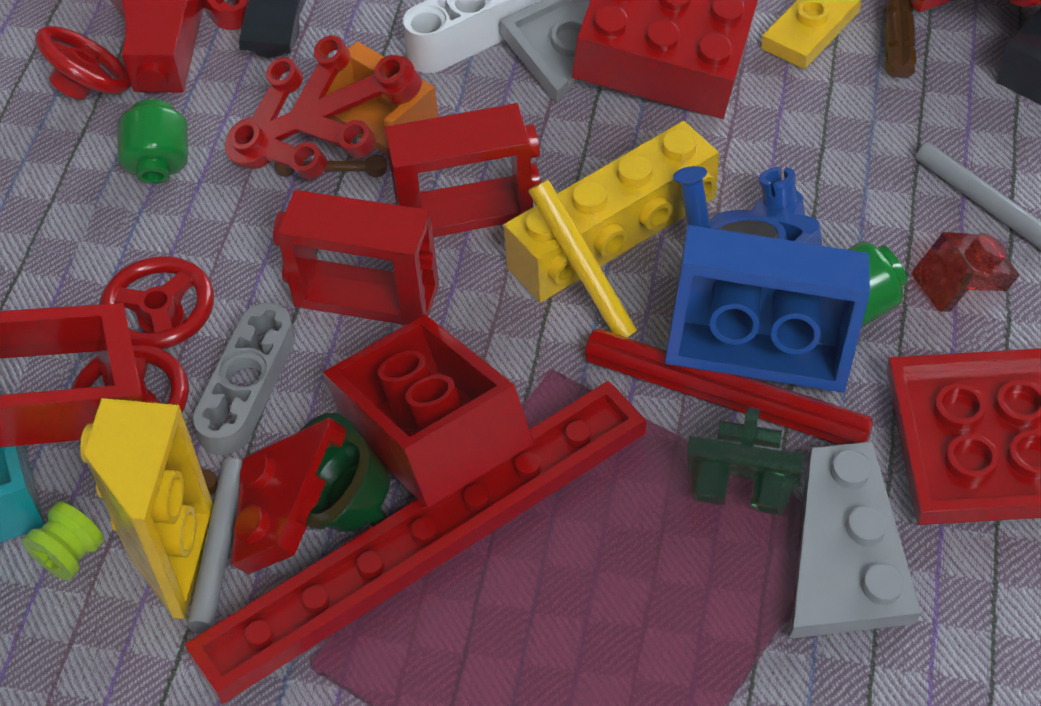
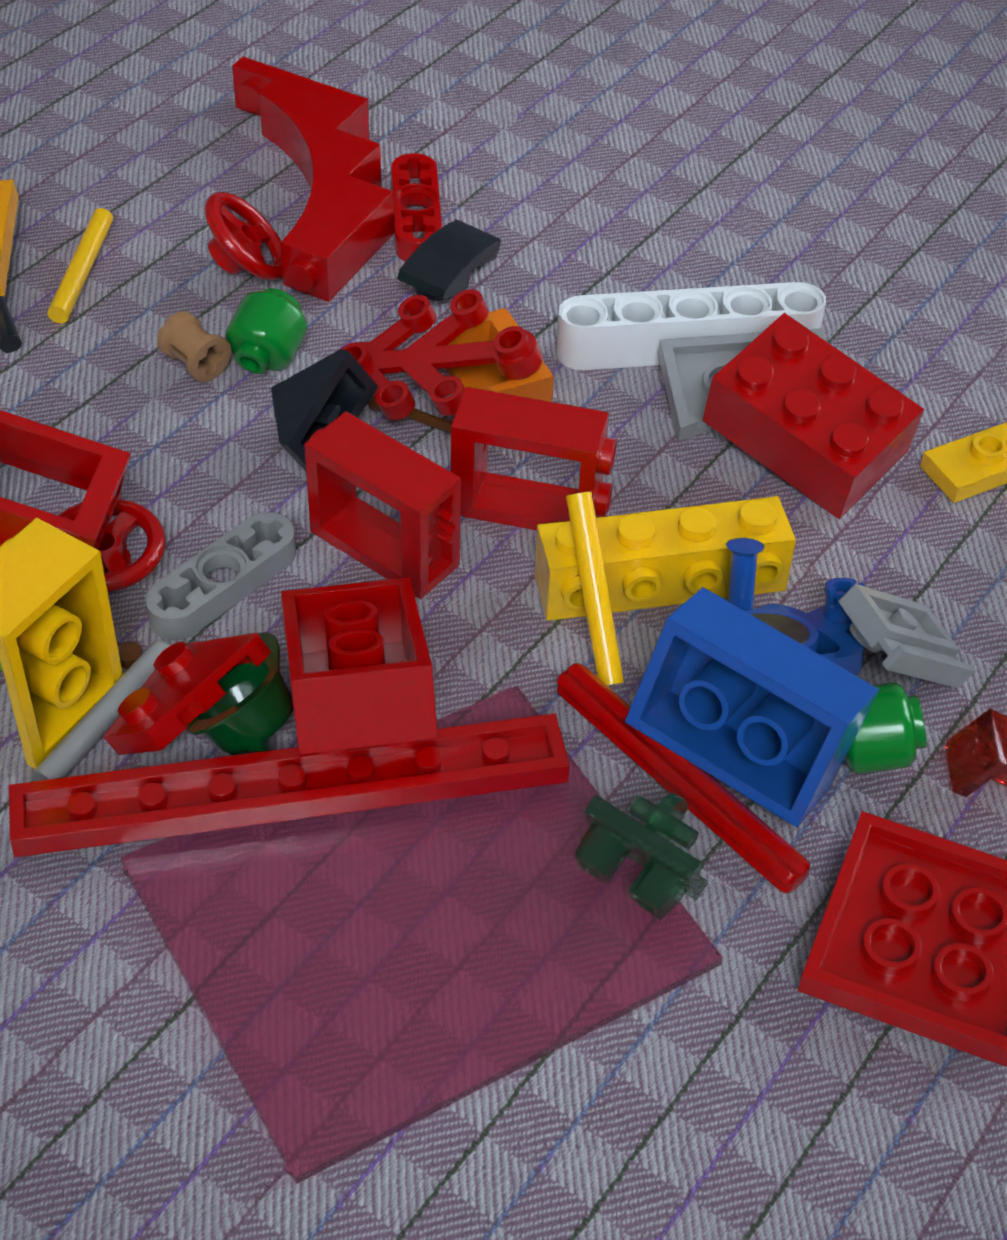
camera: 20 degrees right, 5 degrees down
(94, 180) = (201, 352): none -> medium nougat bush
(160, 307) = (181, 481): red piece -> none
(247, 193) = (319, 397): none -> black slope
(837, 194) = (908, 635): none -> light grey plate
(850, 549) = (706, 982): light grey wing -> none

